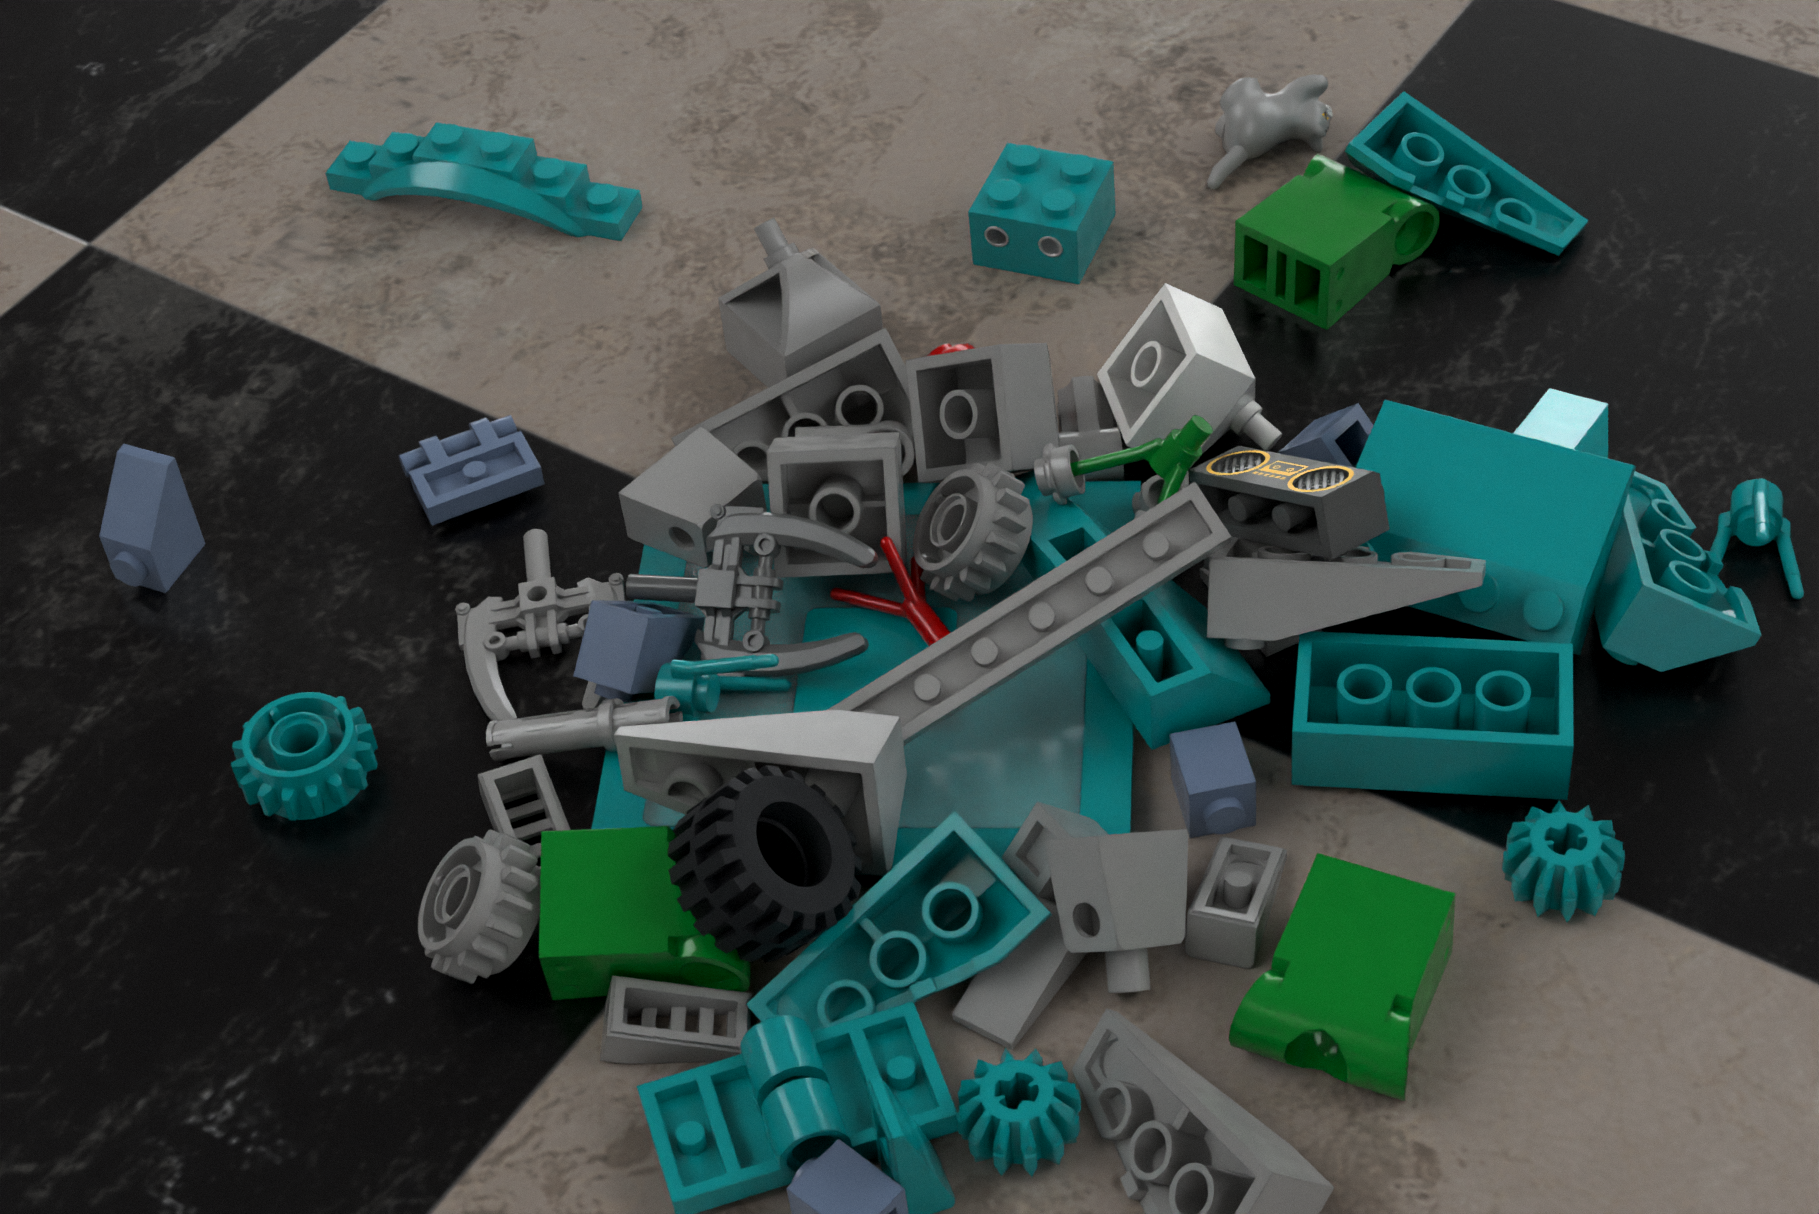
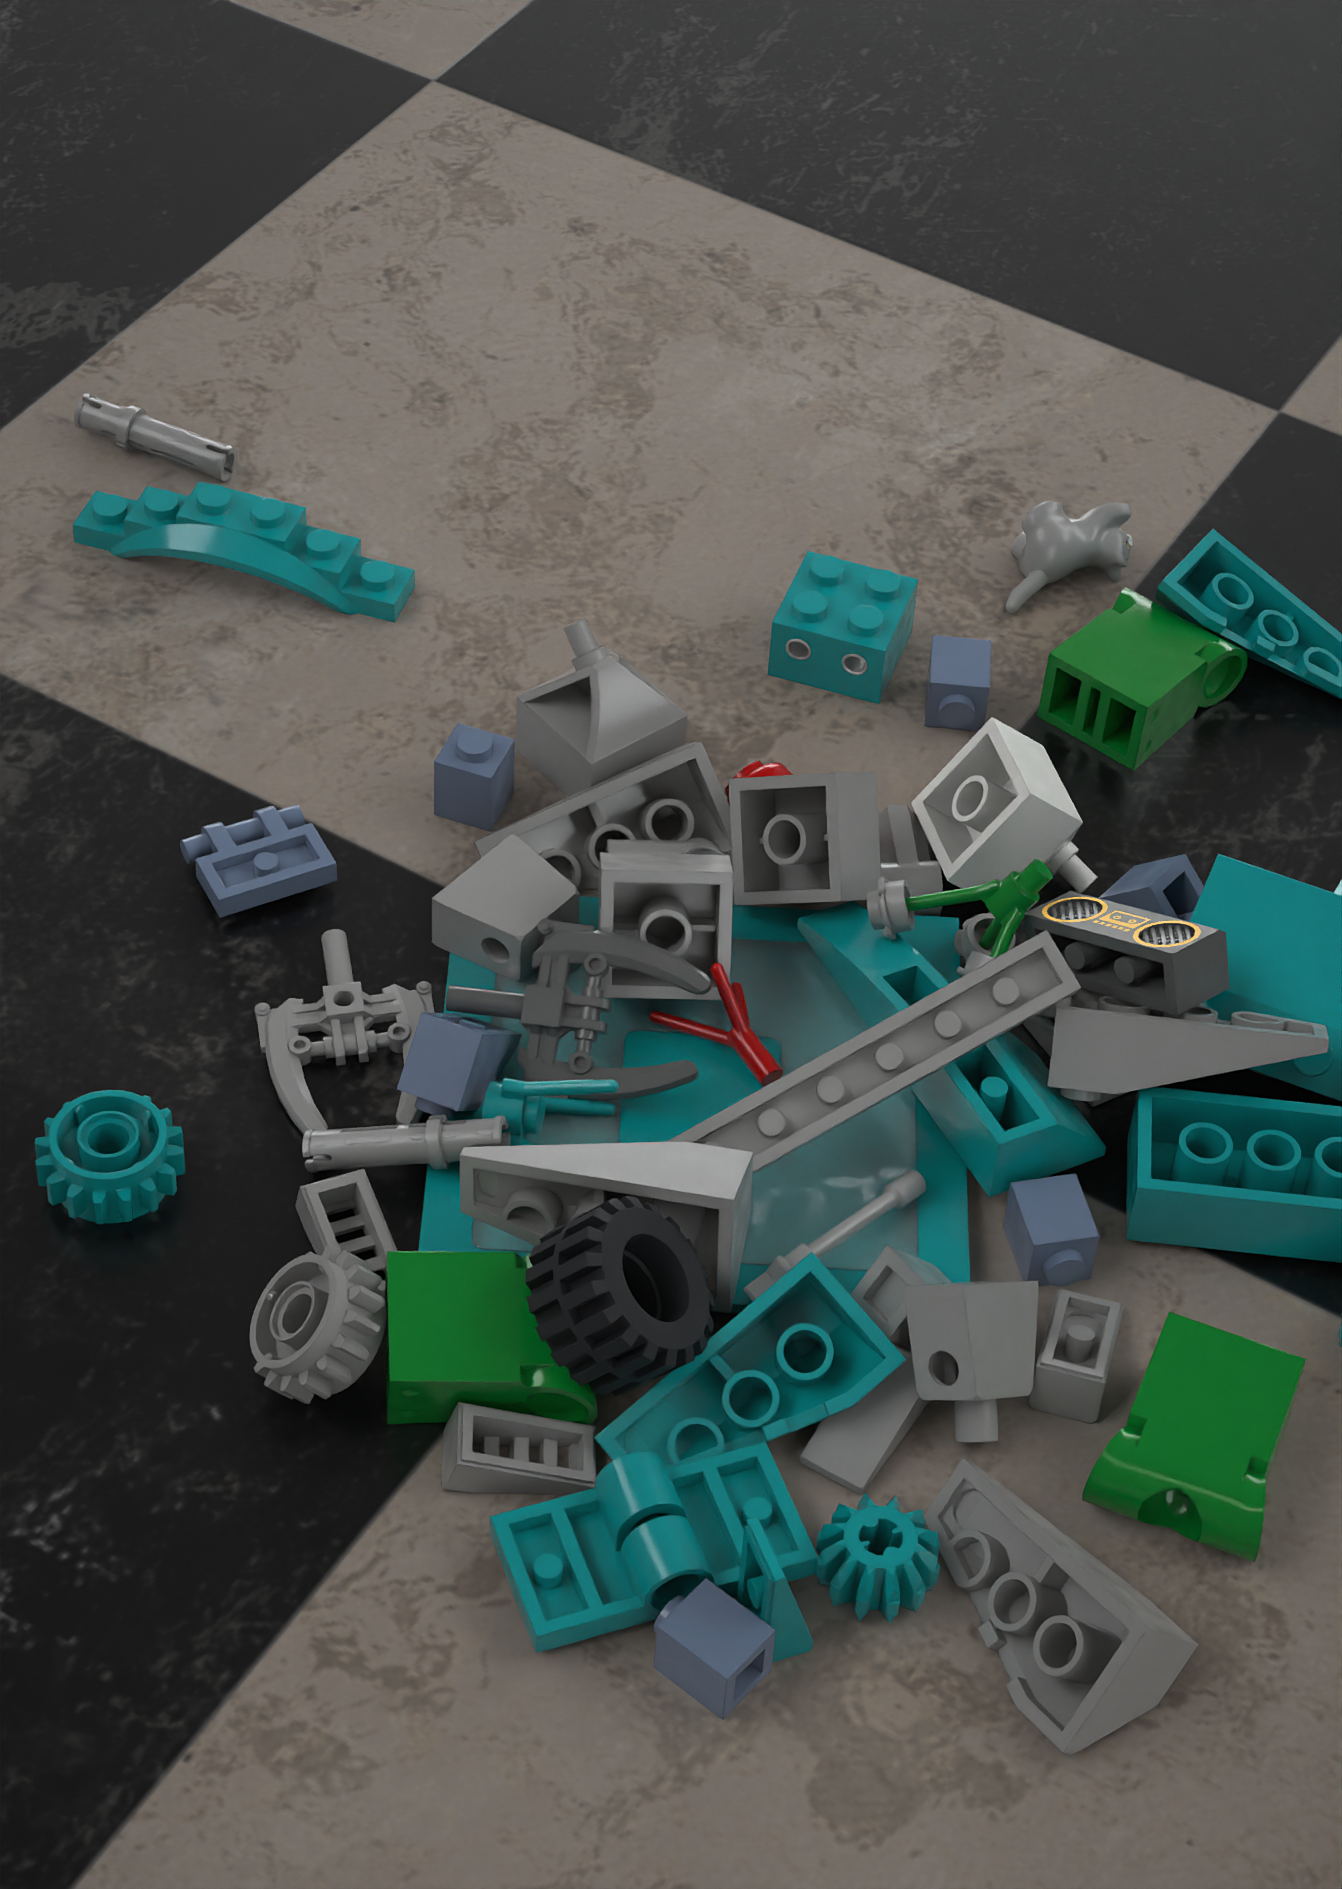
camera: 10 degrees left, 0 degrees up
(392, 83) = (136, 430): none -> light grey pin
(677, 377) = (474, 777): none -> sand blue brick
(972, 532) = (802, 962): light grey gear -> none
(1057, 752) = (896, 1195): none -> light grey piece
(1151, 255) = (958, 683): none -> sand blue brick

